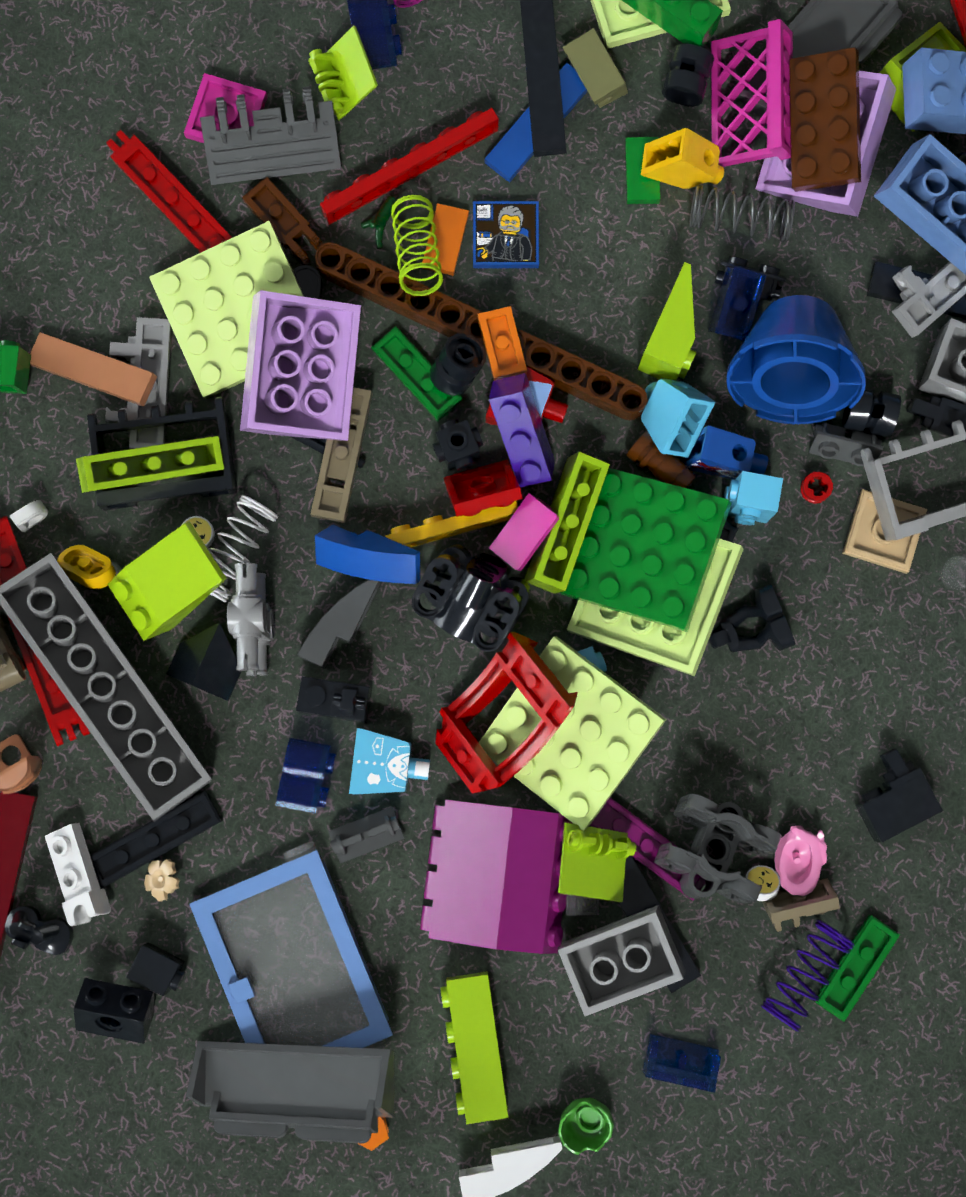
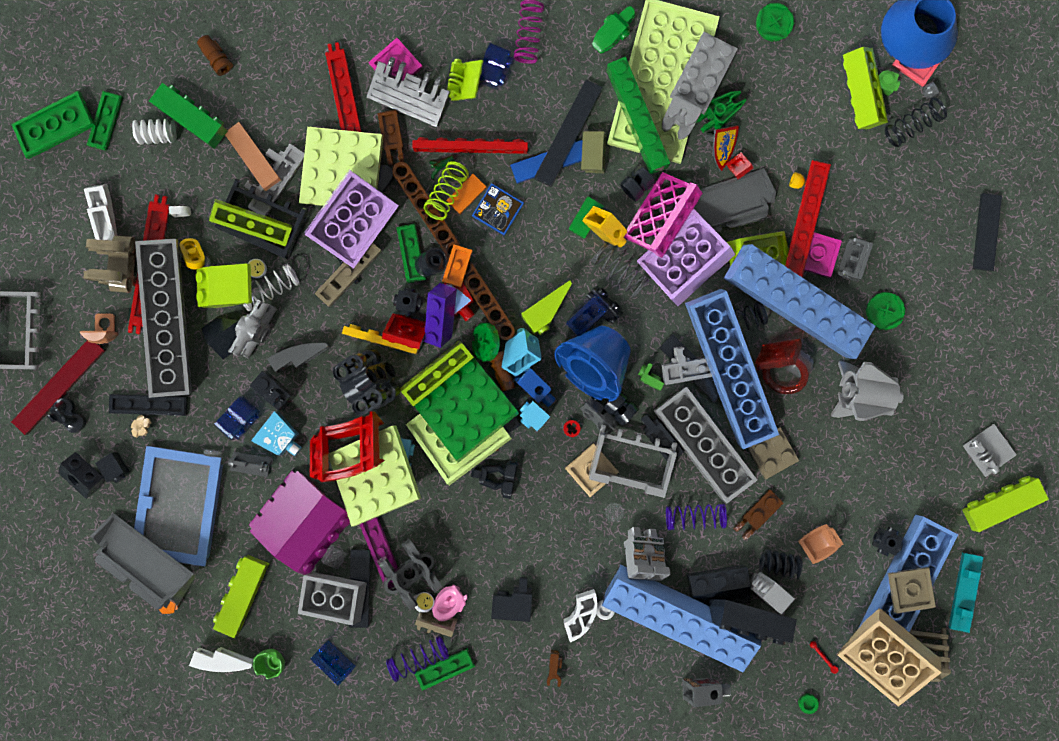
camera: 30 degrees right, 5 degrees up
(76, 875) = (101, 400): white plate -> none
(367, 556) = (328, 330): blue slope -> none
(524, 532) = (412, 365): dark pink panel -> none
(594, 862) = (347, 544): lime hinge -> none
(612, 432) = (485, 342): none -> green tile
(825, 120) = (687, 249): reddish brown plate -> none
(888, 346) = (651, 380): none -> bright green bracket

